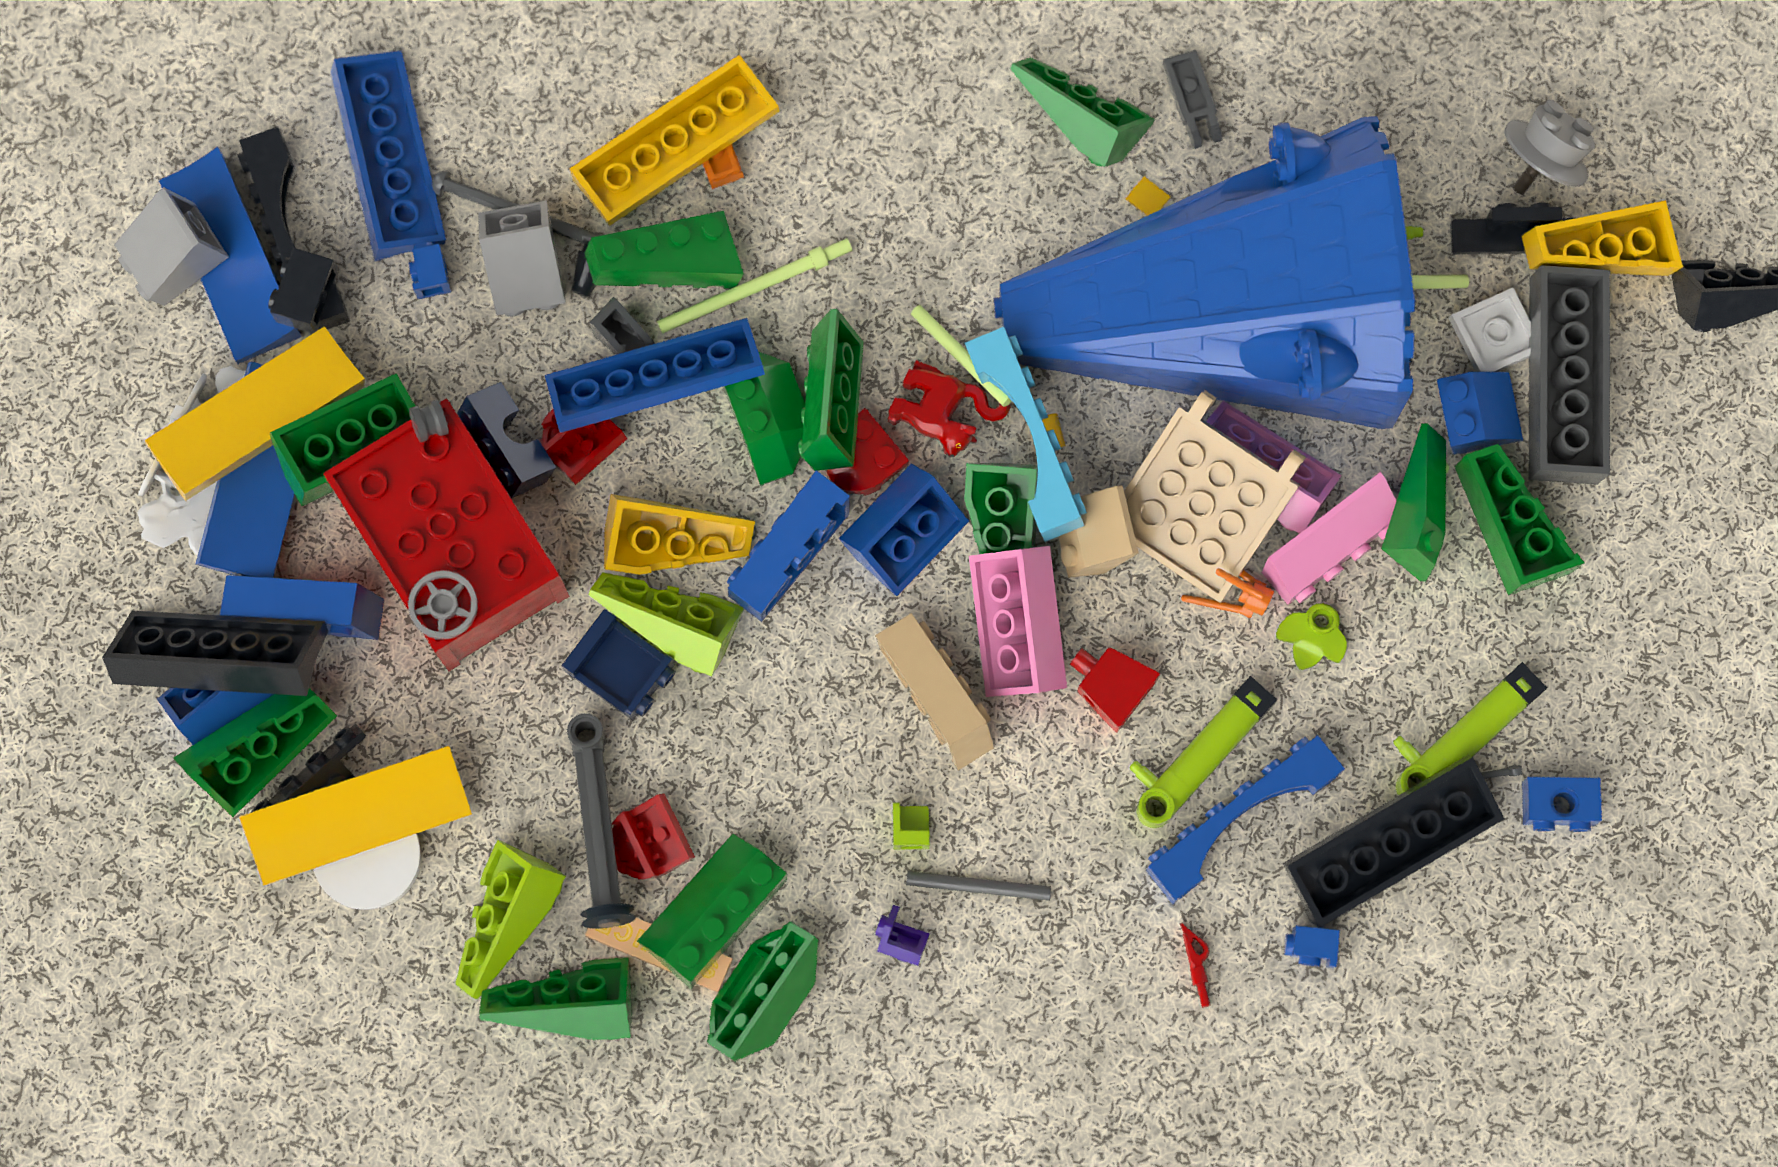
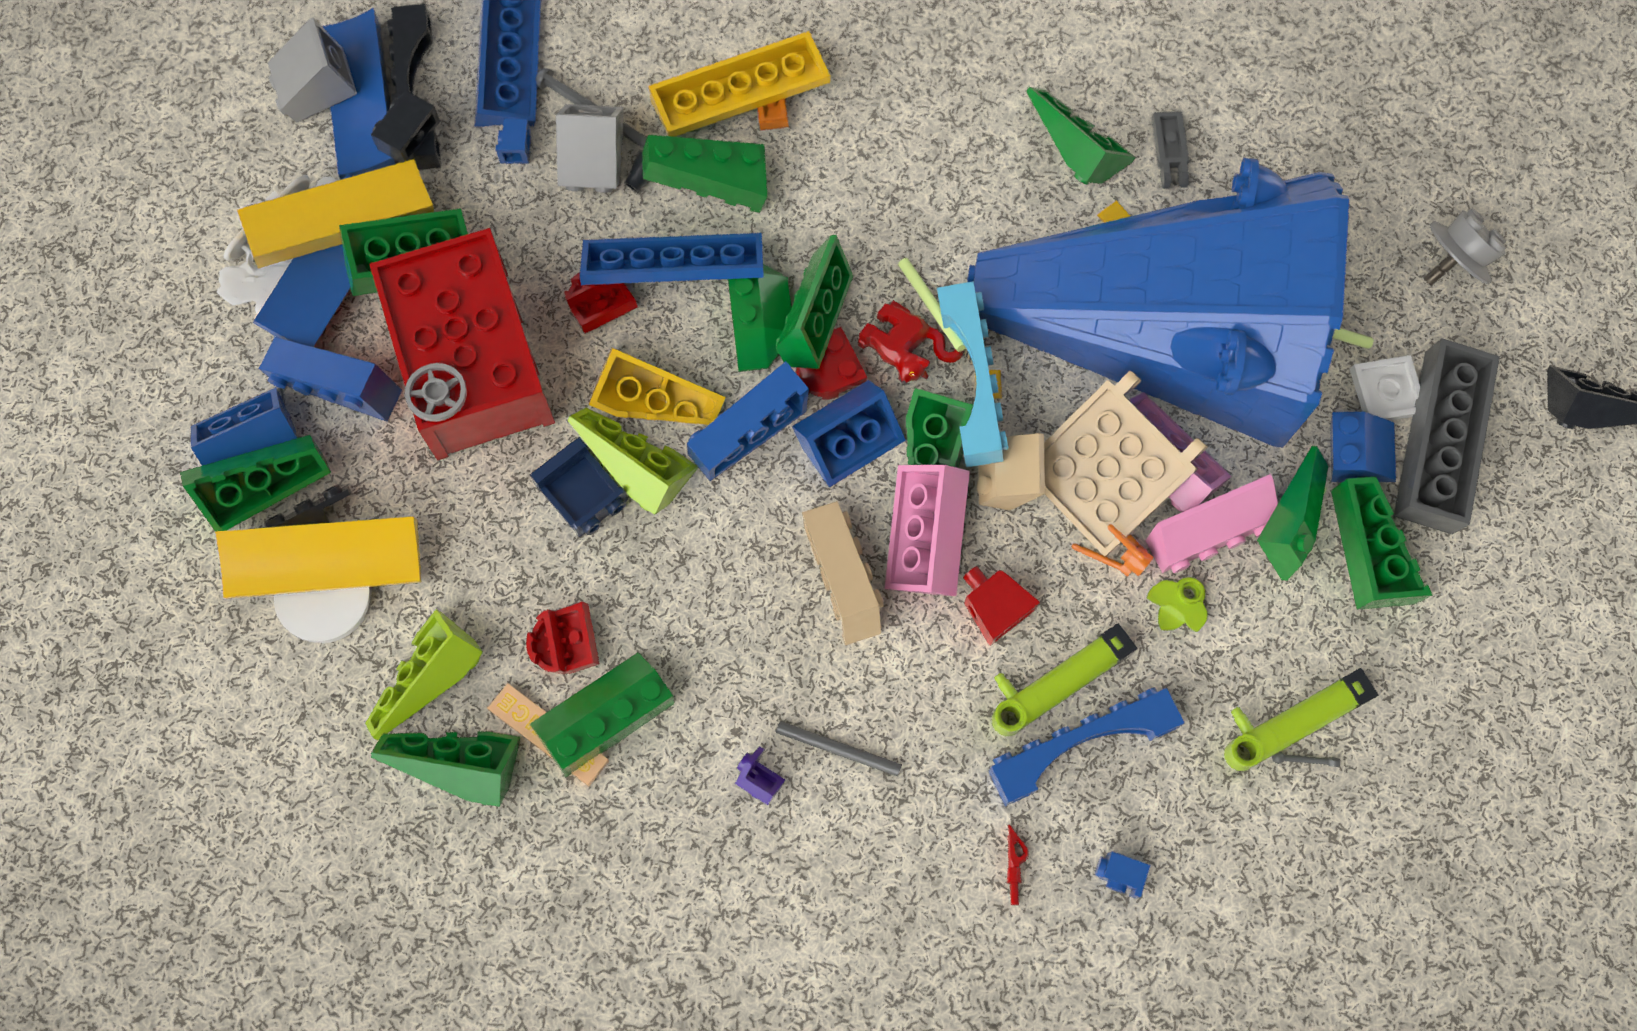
camera: 10 degrees right, 5 degrees down
(215, 652) = (243, 395): black arch -> none
(428, 420) = (468, 239): dark grey wheel -> none
(515, 464) = (539, 306): dark blue arch -> none
(597, 827) = (510, 685): dark grey piece -> none
(618, 329) = (652, 216): dark grey slope -> none
(763, 992) = (626, 796): green wedge -> none
(816, 258) = (831, 203): yellowish green bar -> none
(910, 827) = (791, 683): lime panel -> none
(1393, 841) = (1214, 797): black arch -> none
(1501, 229) = (1426, 311): black bracket -> none
(1581, 794) = (1390, 797): blue brick -> none
(1622, 241) = (1521, 337): yellow wedge -> none

